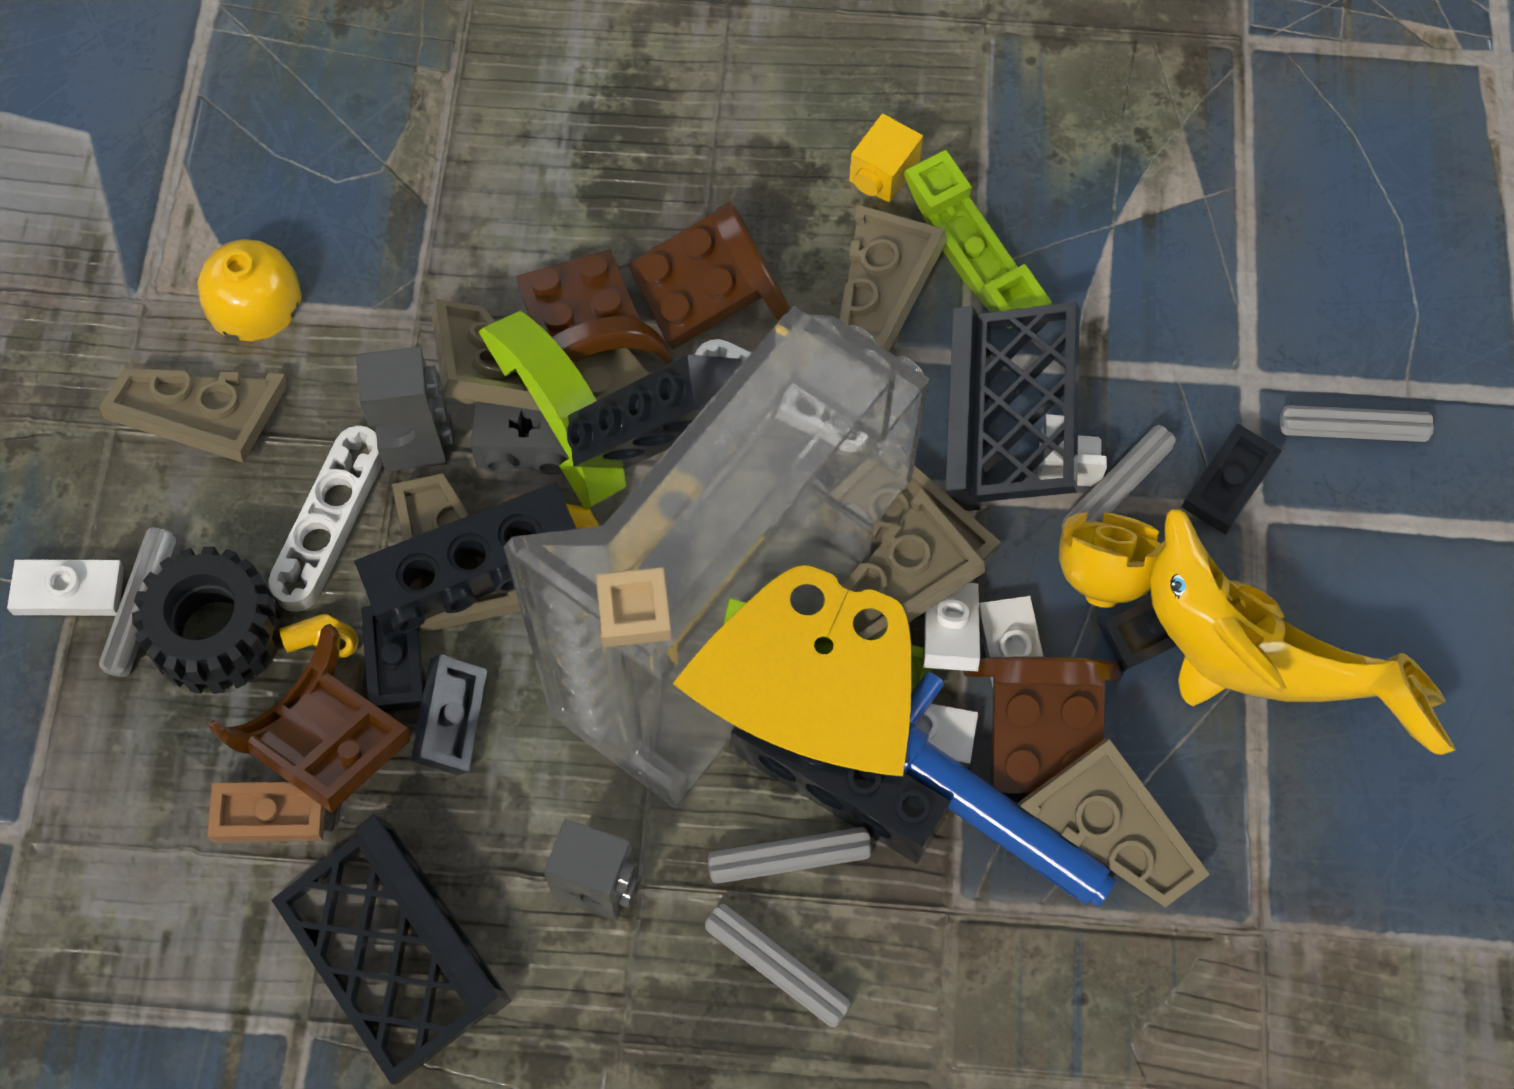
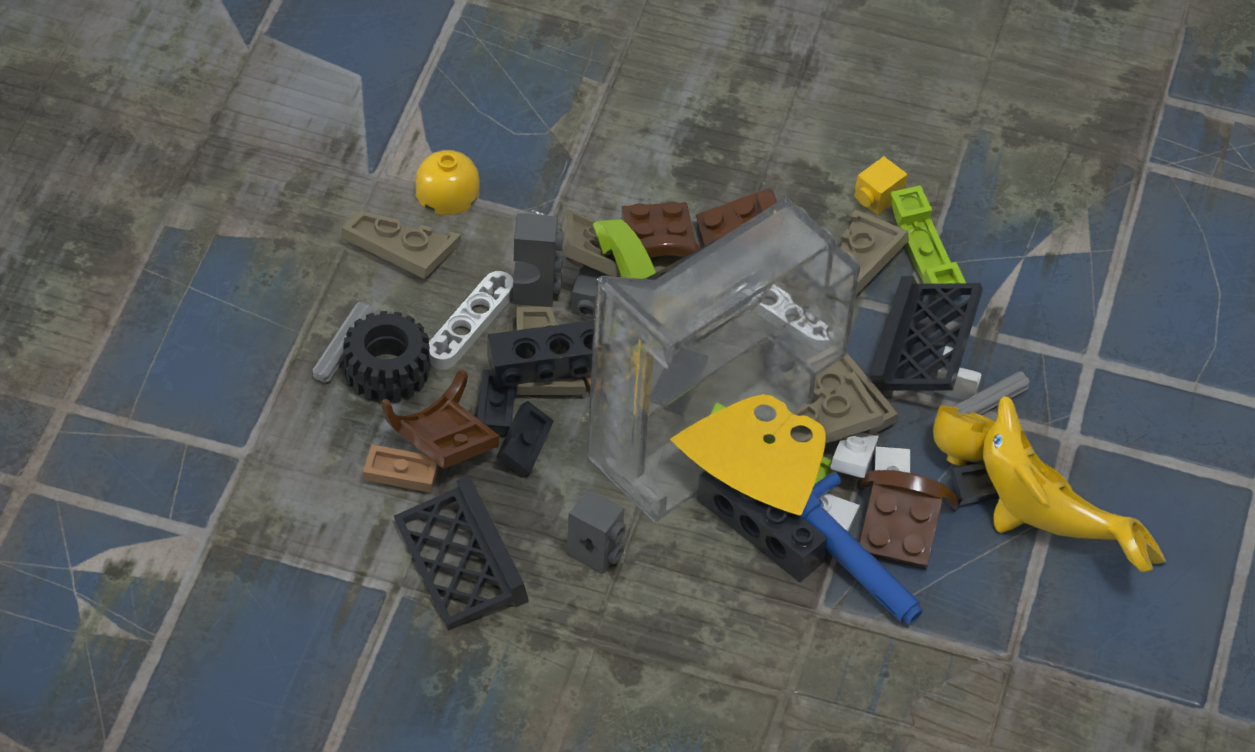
camera: 10 degrees right, 15 degrees down
(66, 587) = (299, 326): white plate -> none
(308, 632) = (444, 379): yellow arm -> none
(633, 607) = (661, 315): tan plate -> none
(777, 965) = (698, 613): light grey axle -> none
(789, 855) = (720, 558): light grey axle -> none
(1118, 822) = (932, 576): dark tan wing -> none
(1231, 479) = (1060, 411): black plate -> none
(1356, 423) = (1153, 397): light grey axle -> none

